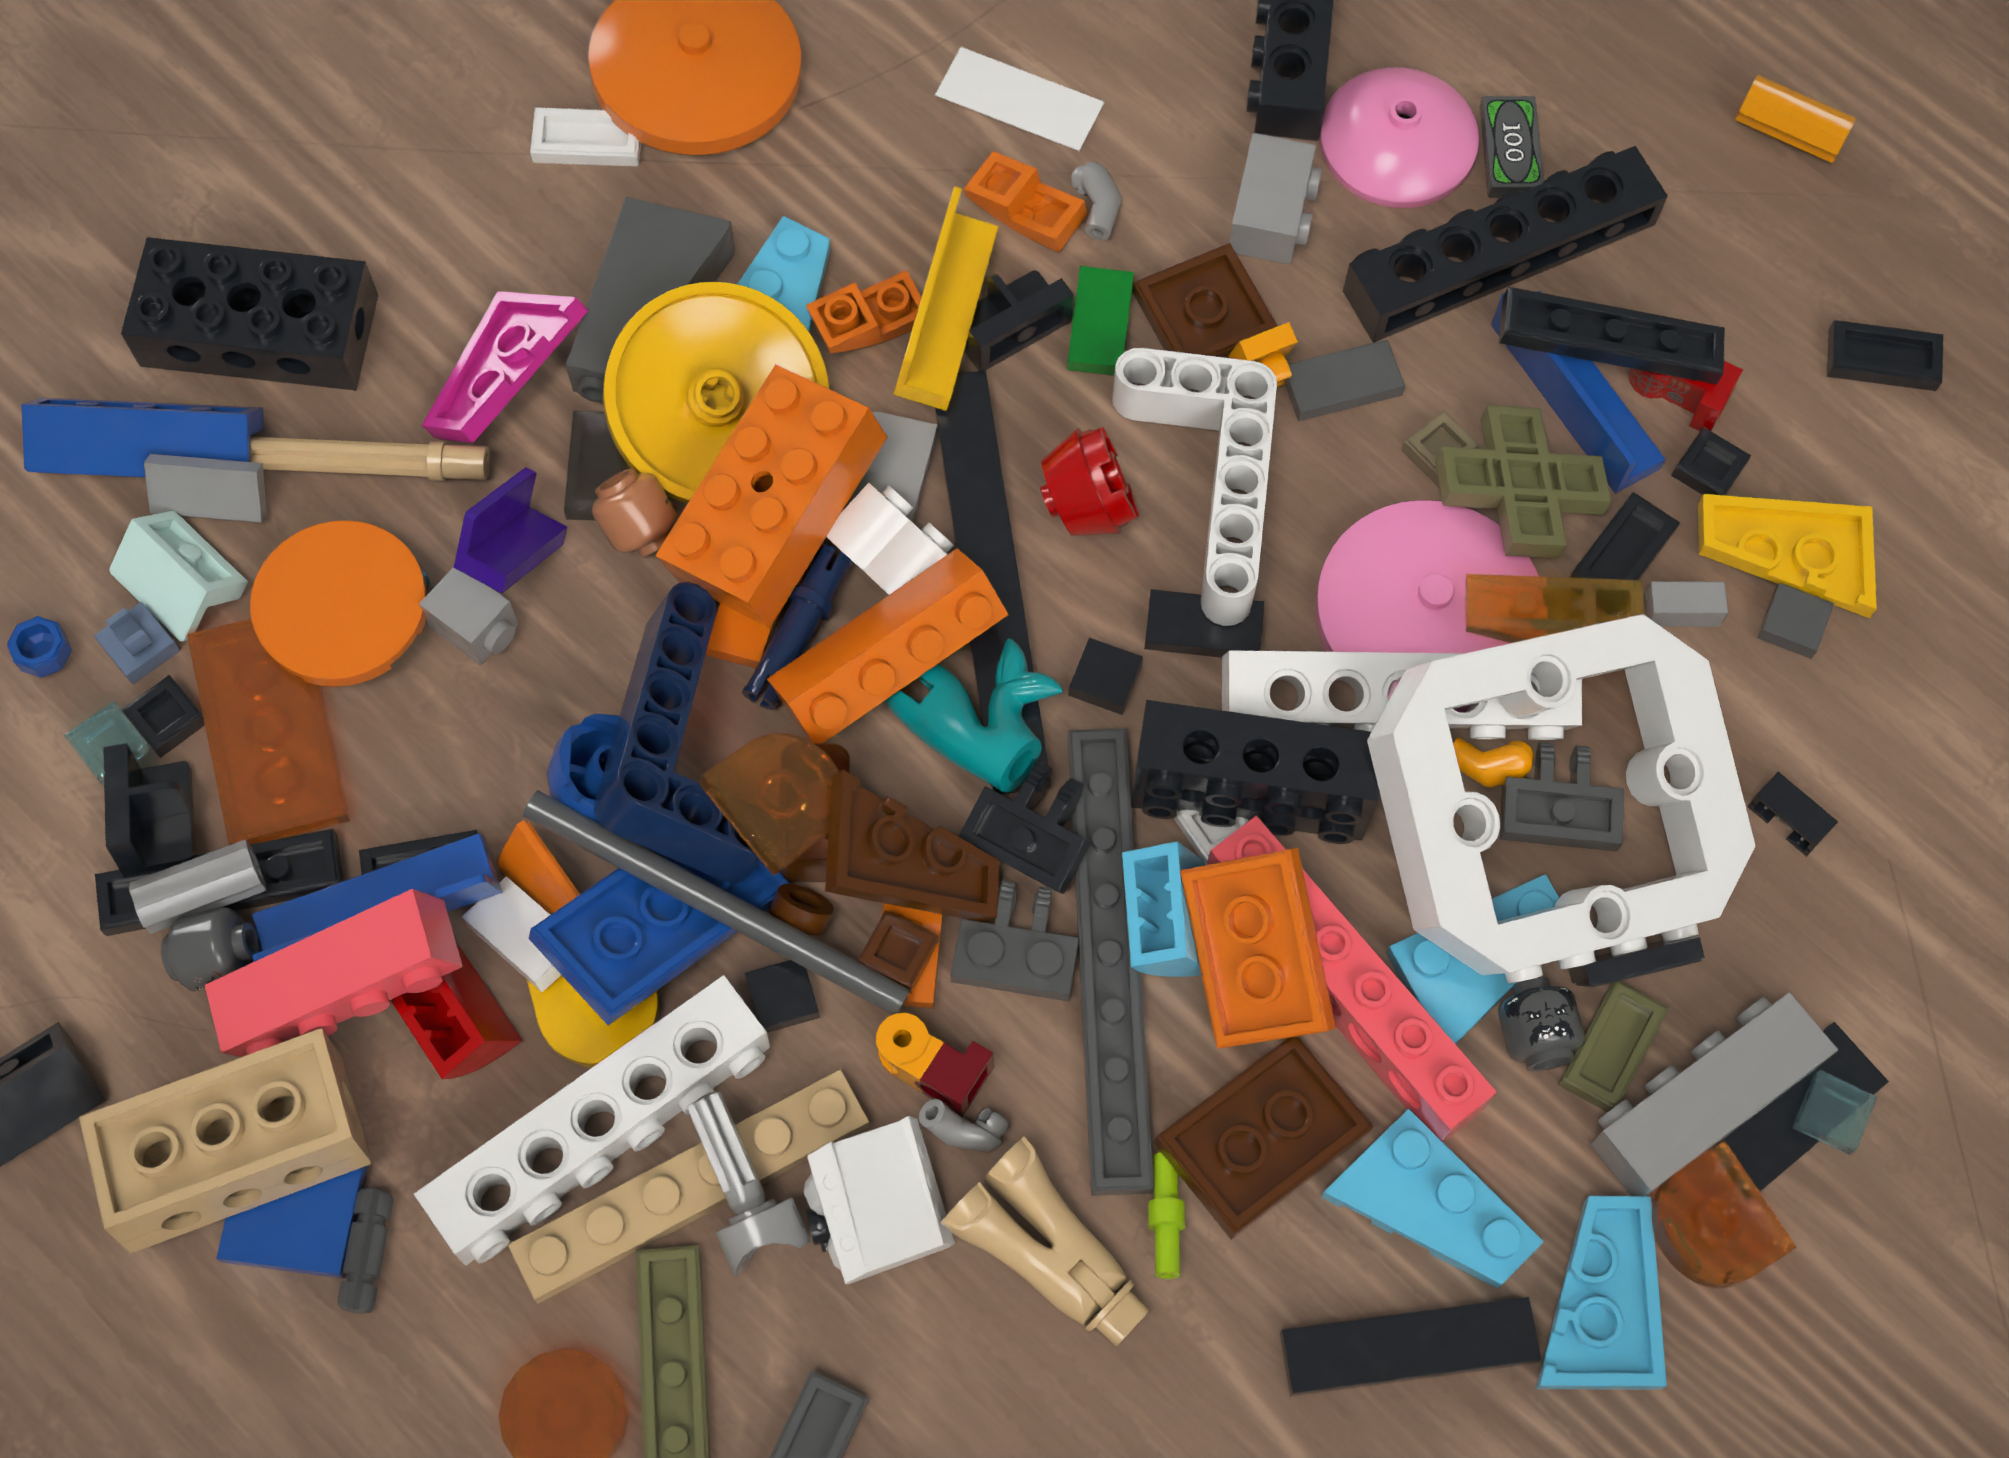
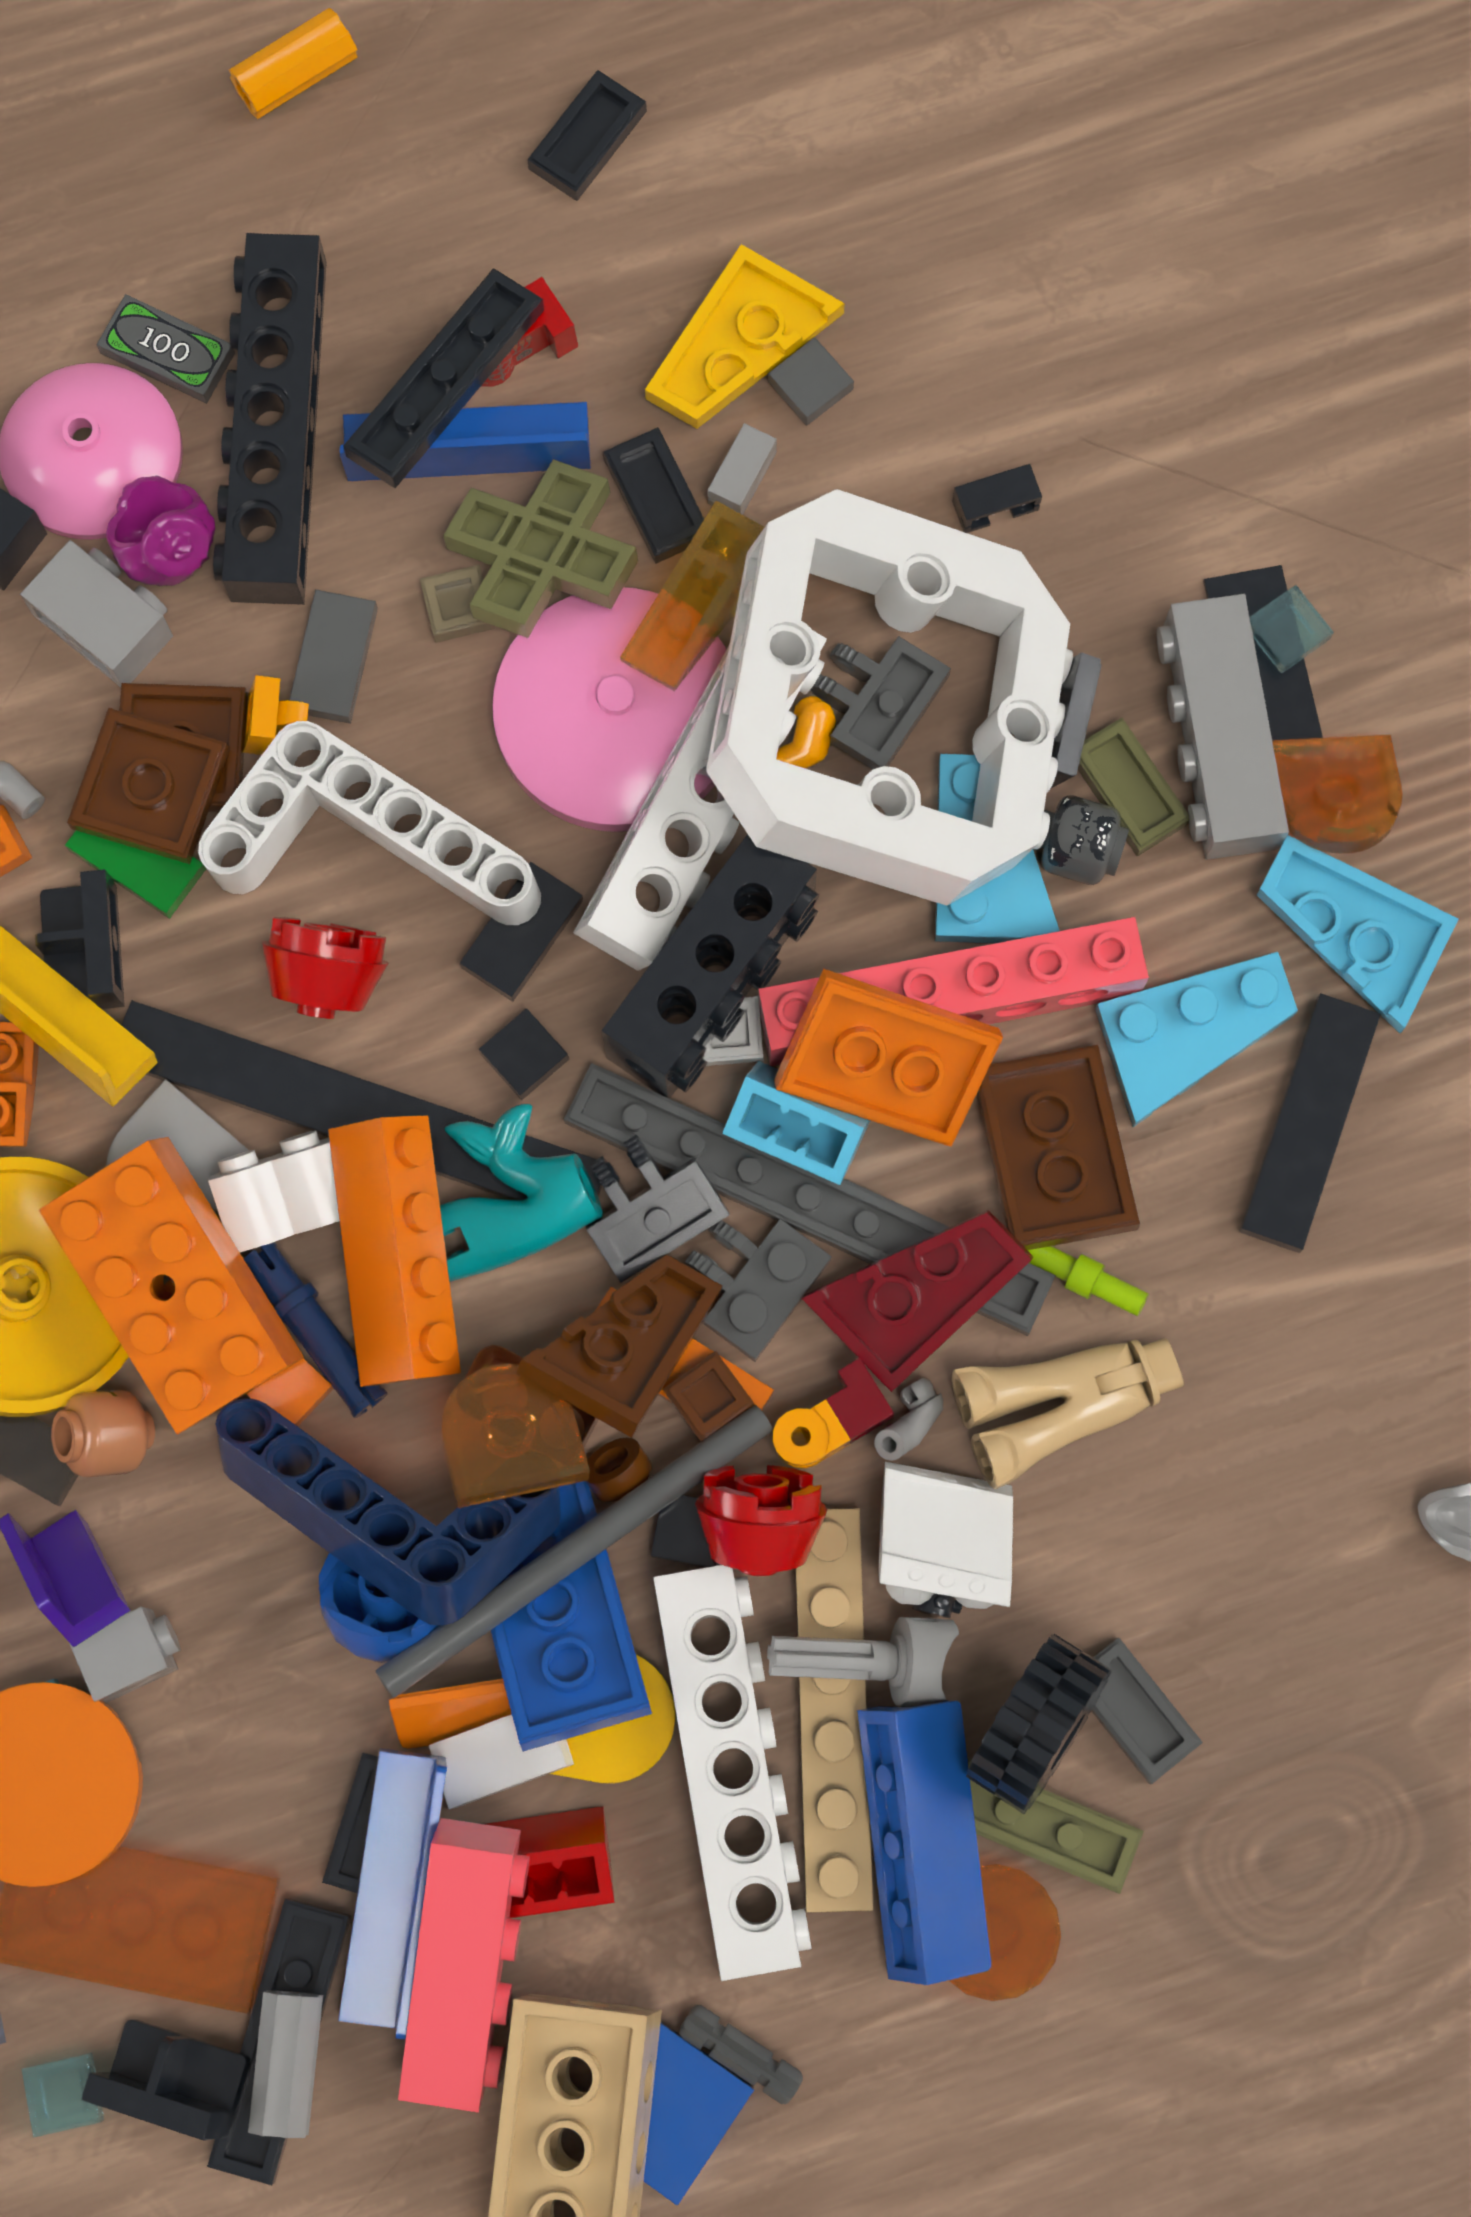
camera: 60 degrees left, 10 degrees up
(164, 716) = (63, 2022): black tile -> none
(207, 947) = (355, 2079): dark grey head -> none
(610, 1312) = (924, 1842): none -> blue panel
(752, 1350) = (1038, 1723): none -> black bush
(813, 1035) = (760, 1518): none -> red cone
(1072, 1079) = (919, 1296): none -> dark red wing
(1160, 297) = (149, 785): none -> reddish brown tile
(1361, 205) = (160, 531): none -> magenta hair
(1710, 464) = (612, 363): black tile -> none

